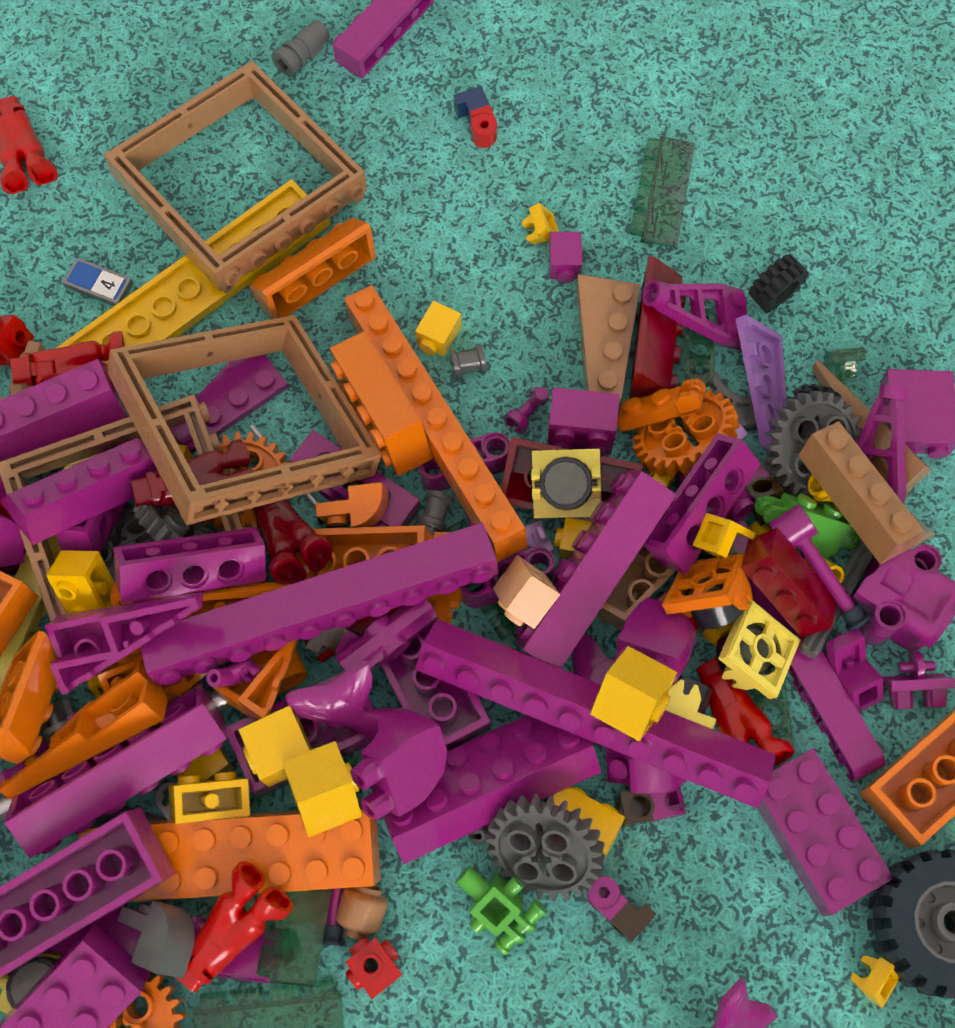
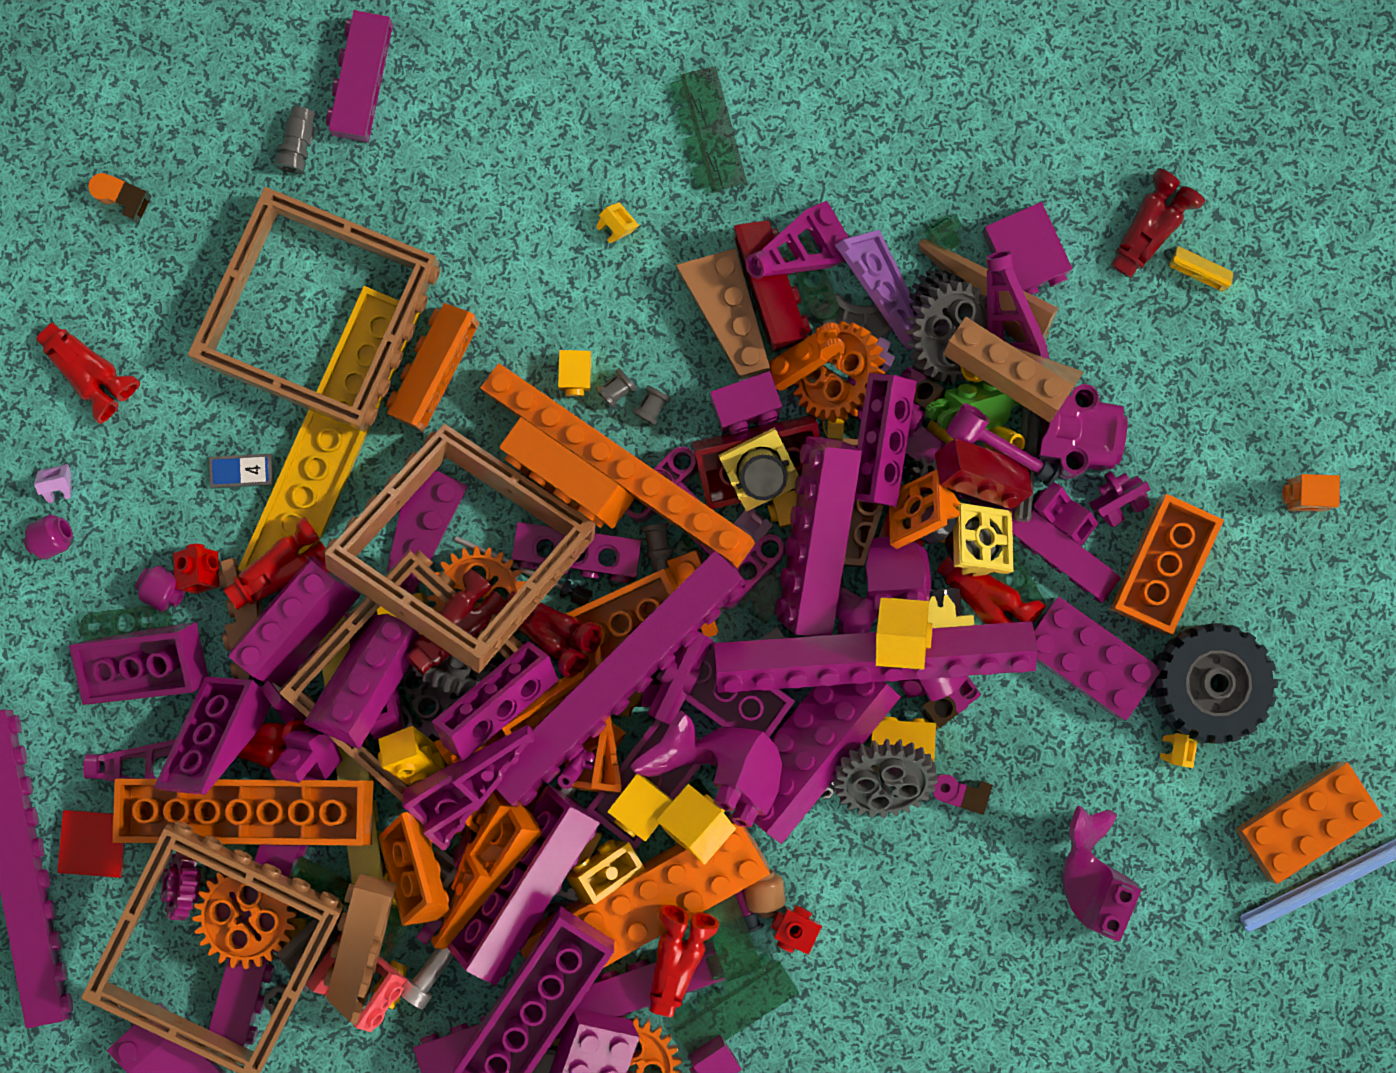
camera: 25 degrees left, 15 degrees up
(137, 30) = (113, 190): none -> leg
(165, 937) = (633, 988): dark grey brick -> none
(365, 506) = (601, 574): orange brick -> none
(479, 114) = (503, 134): leg -> none
(493, 389) = (651, 405): none -> dark grey bush
(497, 905) = (870, 838): bright green piece -> none
(525, 593) = (775, 586): light nougat brick -> none
(538, 397) = (693, 397): magenta piece -> none
(565, 256) = (653, 245): magenta brick -> none
(718, 534) = (909, 463): yellow panel -> none
(778, 283) = (855, 185): black tyre -> none

